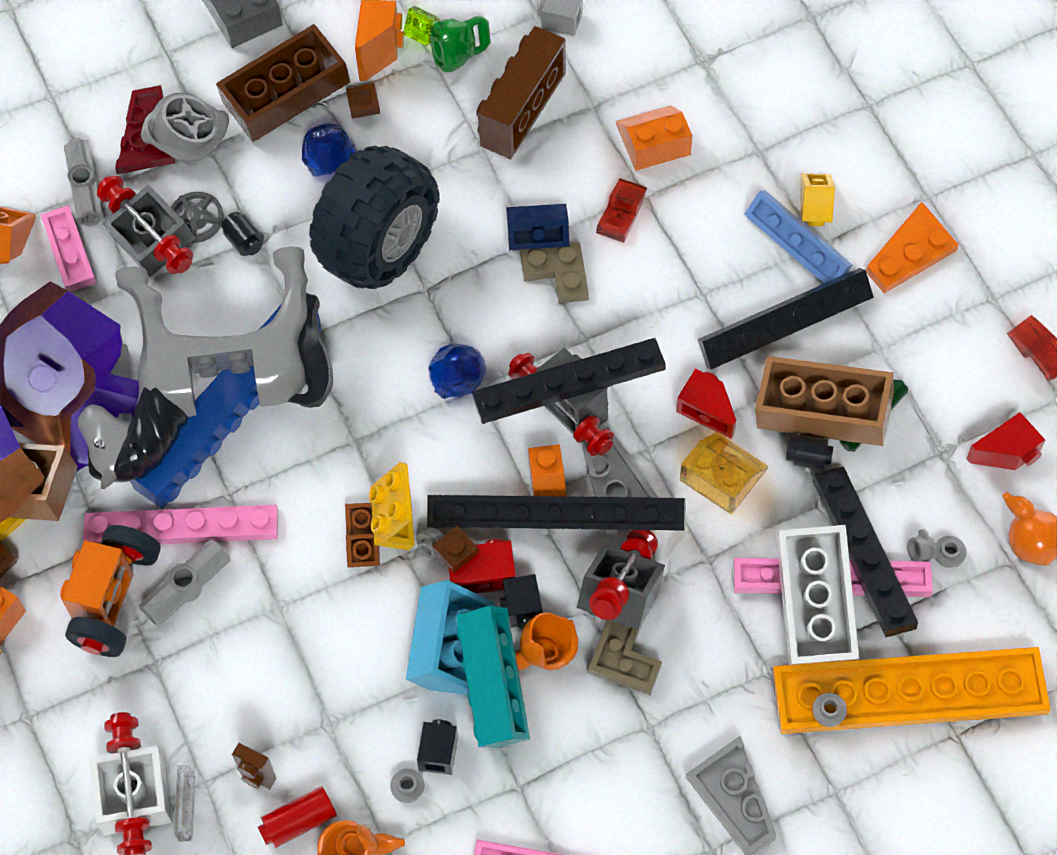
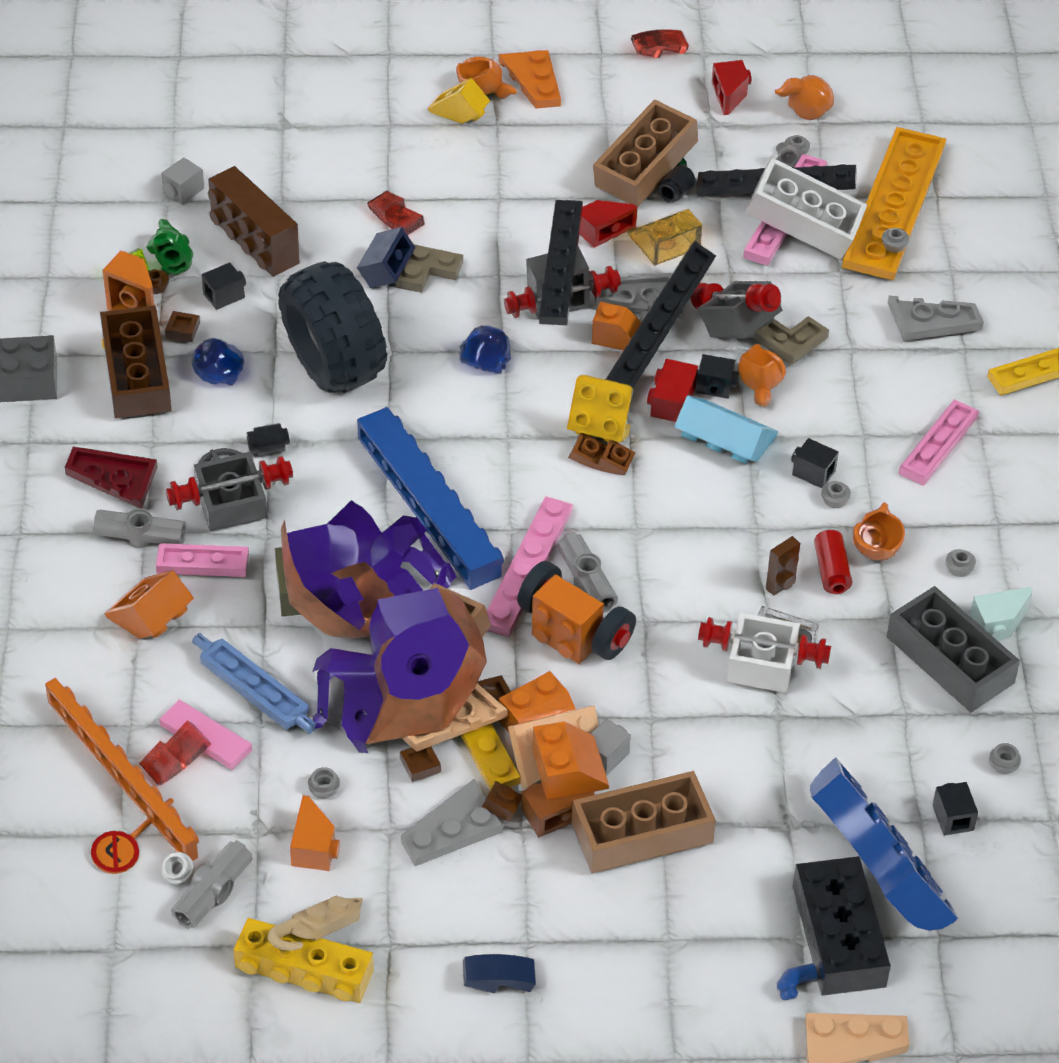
camera: 70 degrees left, 15 degrees down
(180, 133) = (136, 437): light grey piece -> none
(283, 355) = (410, 493): light grey animal -> none
(416, 59) = (159, 280): none -> reddish brown plate
(425, 541) = (637, 413): light grey plate -> none
(432, 109) = (223, 285): none -> black brick
(455, 549) = (658, 388): reddish brown plate -> none
(492, 677) = (778, 403): teal brick -> none
(655, 137) = (340, 168): orange slope -> none
(785, 318) = (555, 151): black plate -> none
(797, 238) = (490, 126): medium blue plate -> none
(866, 200) = (486, 74): none -> orange hair

